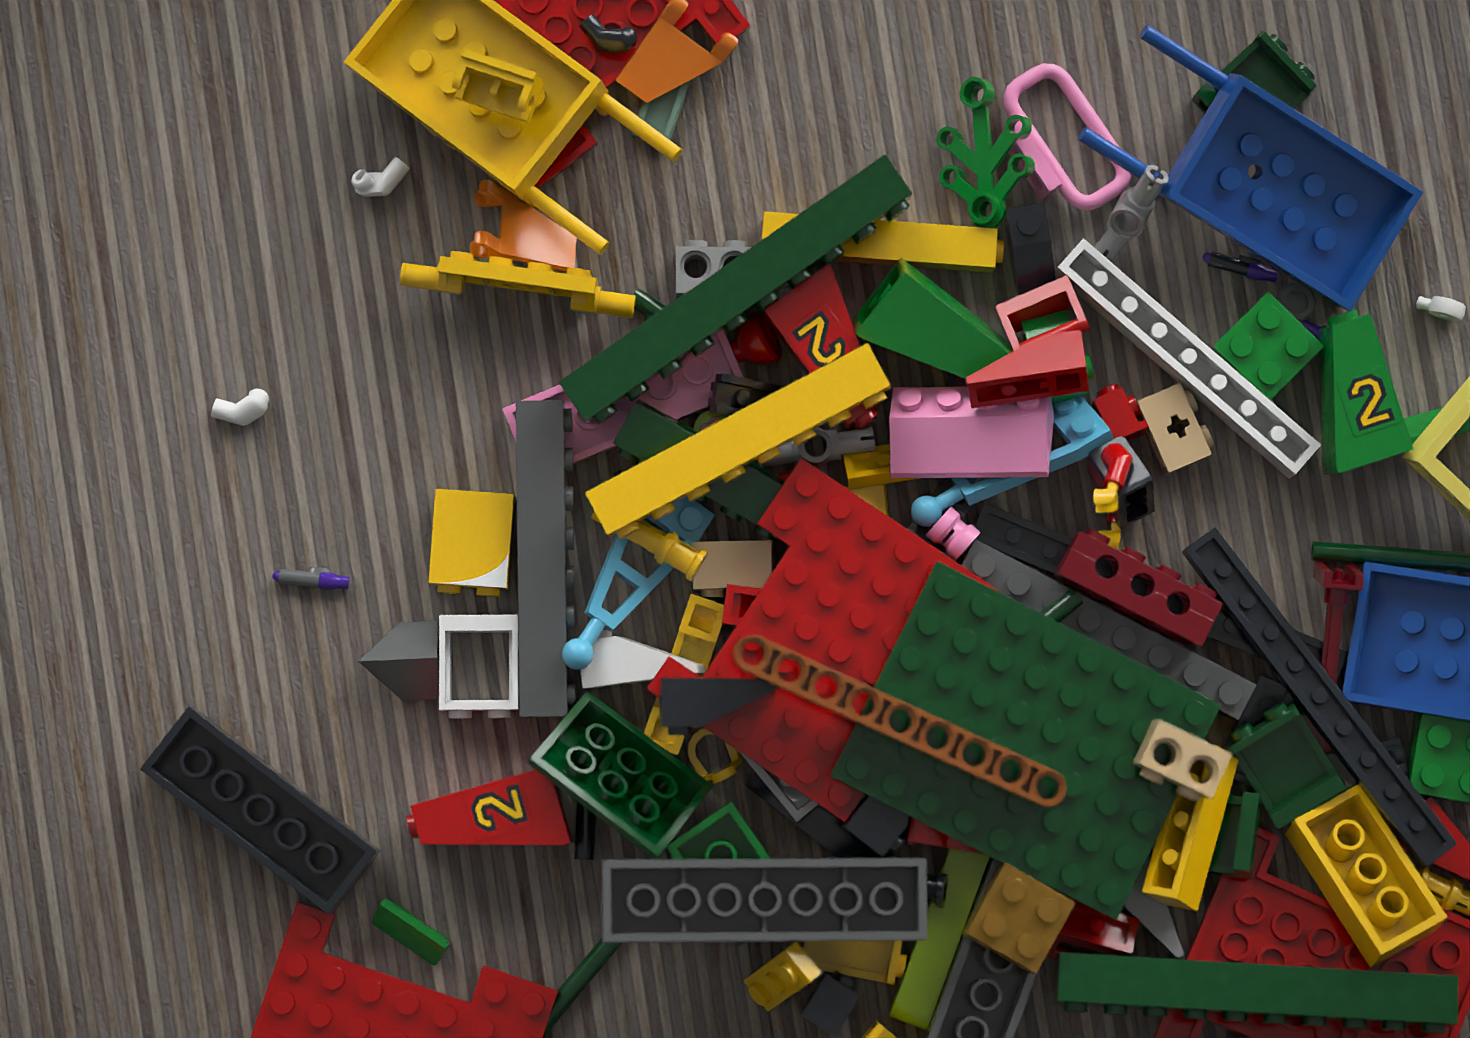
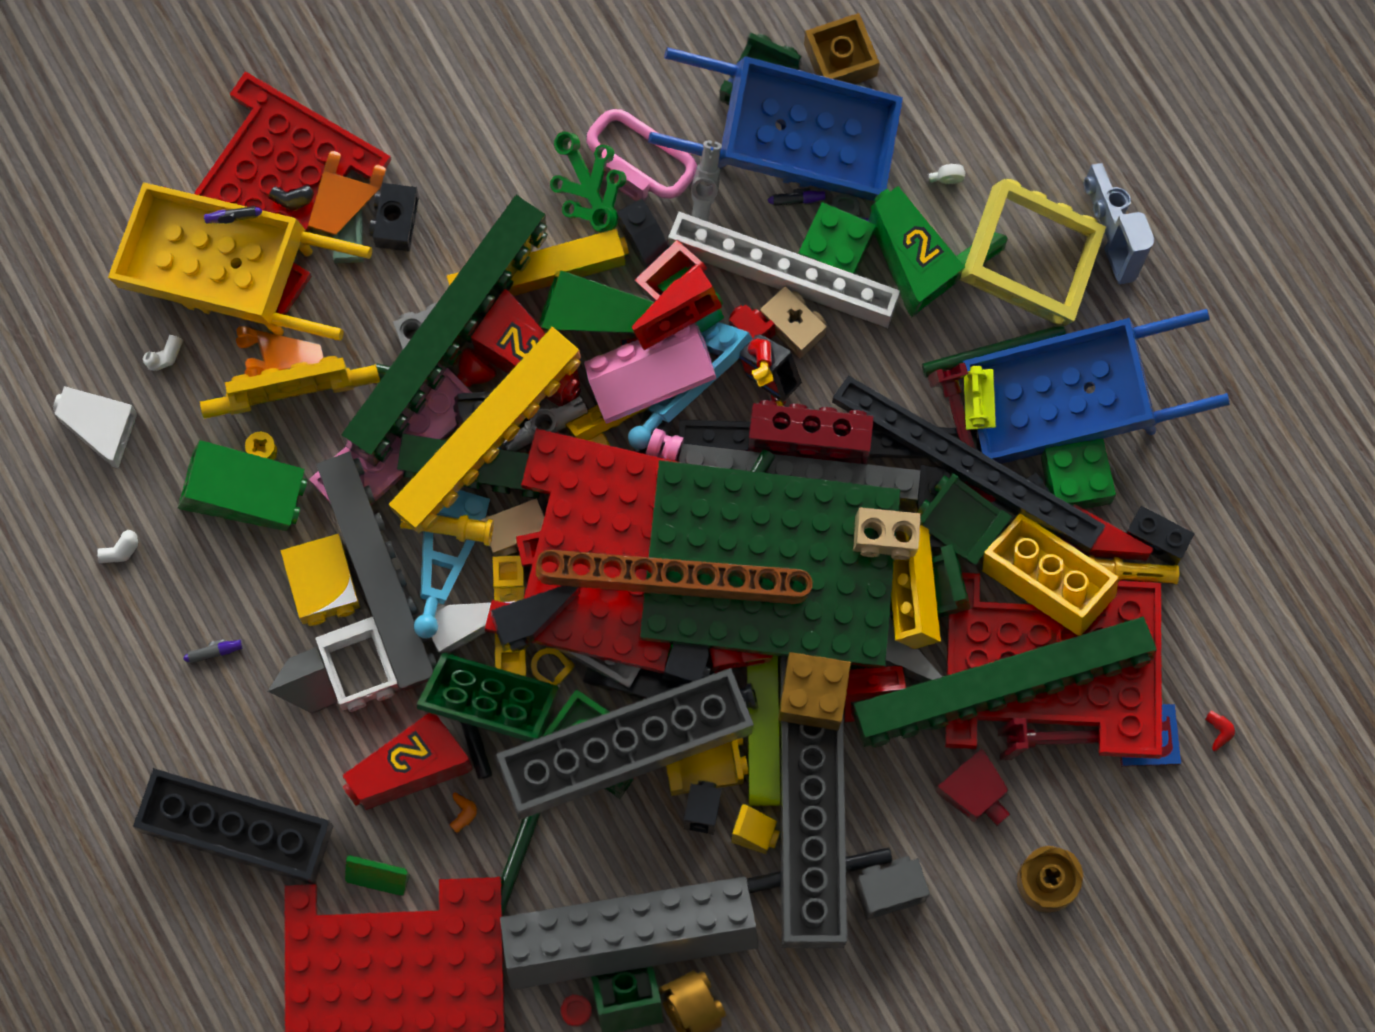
camera: 20 degrees left, 10 degrees down
(268, 237) = (97, 422): none -> white slope
(417, 389) = (242, 487): none -> green slope
(462, 351) = (261, 438): none -> yellow wheel
(497, 86) = (223, 247): yellow hinge -> none
(519, 45) = (232, 215): none -> black piece
(546, 897) = (466, 816): none -> orange animal
(721, 129) = (397, 233): none -> black brick
(781, 977) = (659, 800): yellow plate -> none
(1366, 622) = (979, 398): none -> neon yellow hinge
(1370, 99) = (842, 50): none -> pearl gold brick

